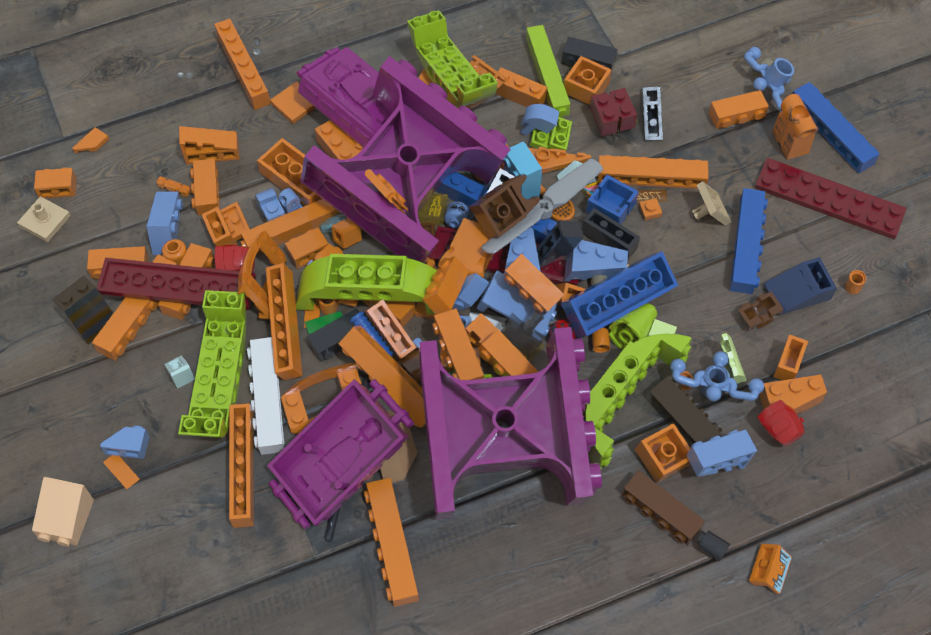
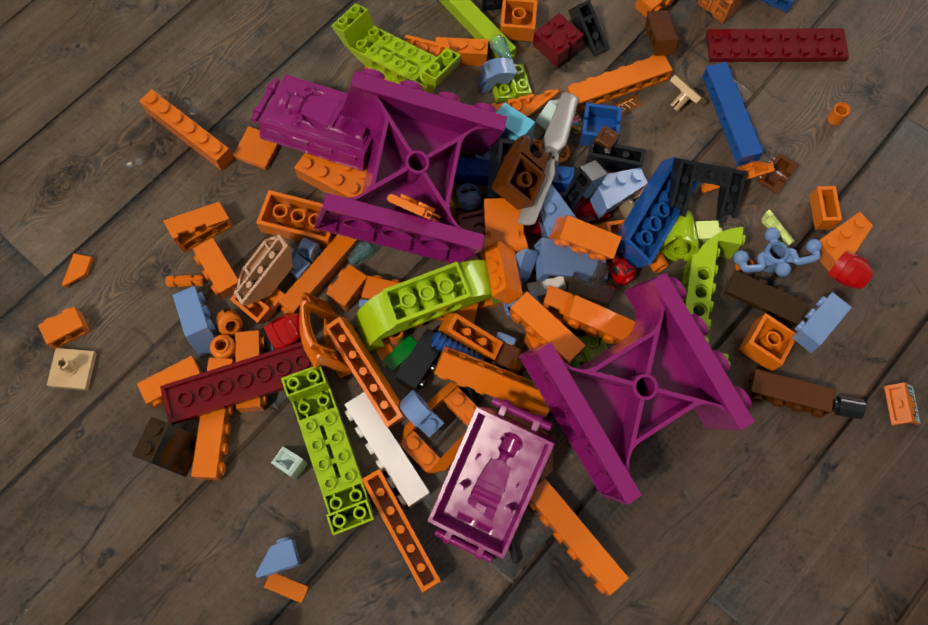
camera: 25 degrees left, 10 degrees up
(195, 229) = (228, 322): none -> orange head
(240, 201) = (264, 270): none -> medium nougat wedge
(308, 372) = (420, 414): none -> medium blue brick
(346, 233) = (377, 258): orange brick -> none
(553, 96) = (500, 47): none -> clear light blue cone
(608, 211) = (607, 137): none -> reddish brown tile
(650, 209) = (633, 118): orange plate -> none
(664, 267) = (686, 172): none -> black wedge
(716, 142) = (661, 33): none -> reddish brown brick
(719, 298) = (753, 169): none -> orange wing
(802, 286) = (799, 135): dark blue slope -> none

